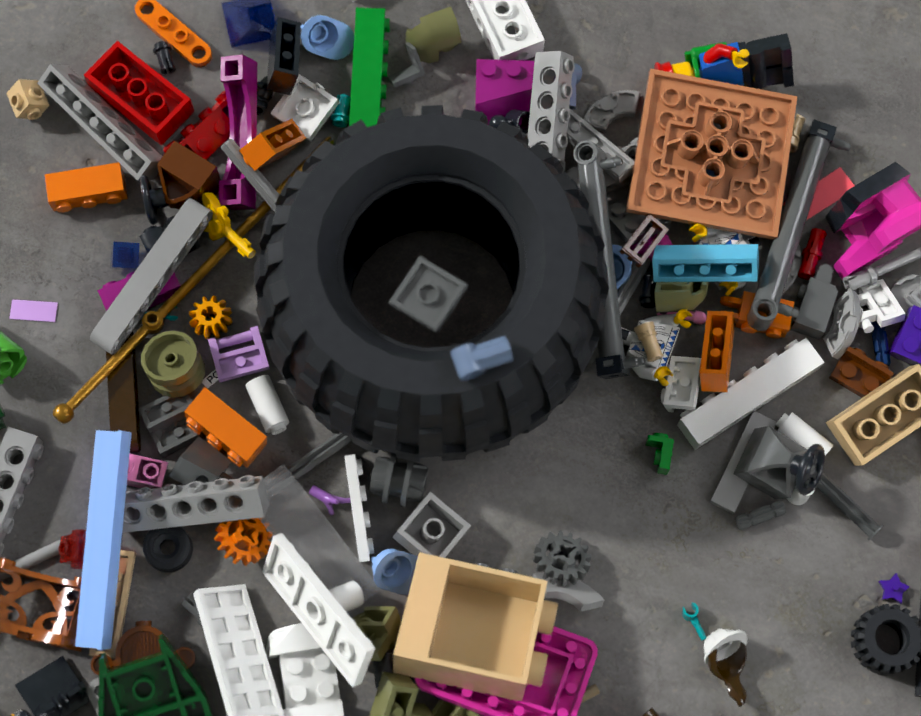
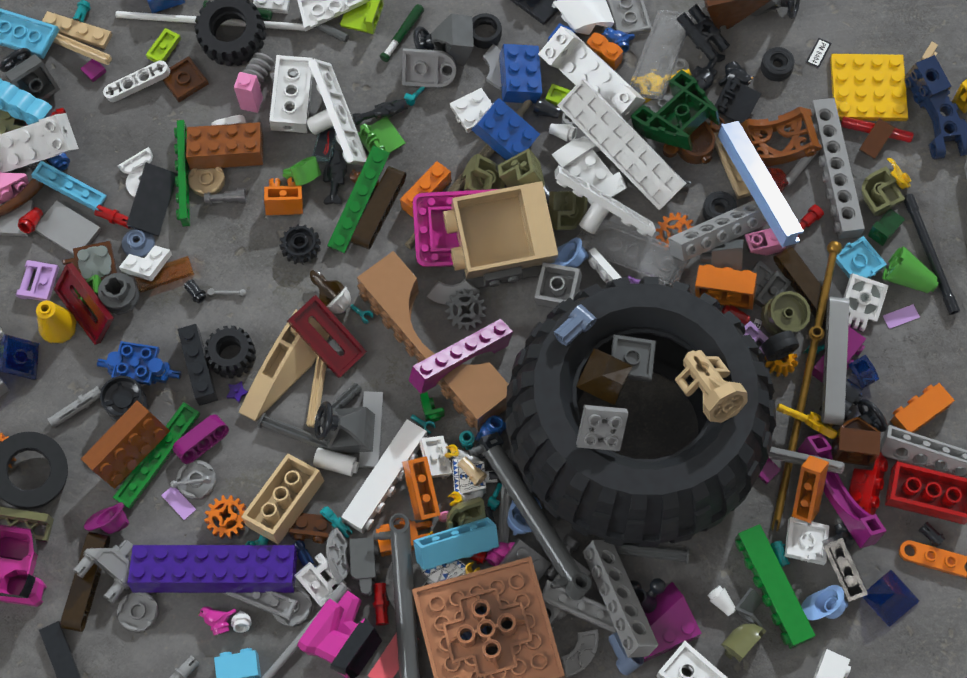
camera: 160 degrees right, 5 degrees down
(36, 395) = (860, 259): none -> medium azure plate
(54, 484) = (814, 213): none -> red piece
(66, 342) = (864, 300): none -> white piece
(208, 316) = (780, 345): none -> black tyre
(233, 397) = (743, 317): none -> red cone
(355, 188) = (720, 397): none -> tan piece
(431, 91) = (722, 600): none -> white cone
(475, 280) = (604, 376): none -> dark brown slope
(514, 214) = (595, 418): none -> light grey plate
(598, 391) = (492, 425): none -> blue animal
(601, 443) = (391, 291): none -> medium nougat arch
(601, 483) = (431, 370): none -> arch
(632, 255) = (505, 558): tile -> none
(634, 308) = (492, 501): none -> teal hand
(635, 384) = (466, 435): none -> teal pin
(677, 441) = (422, 423): none -> teal hand
(753, 561) = (352, 348): none -> dark red piece
(791, 542) = (316, 393): none -> tan axle
(817, 593) = (281, 369): none -> tan wedge
(831, 366) = (336, 521): none -> teal piece

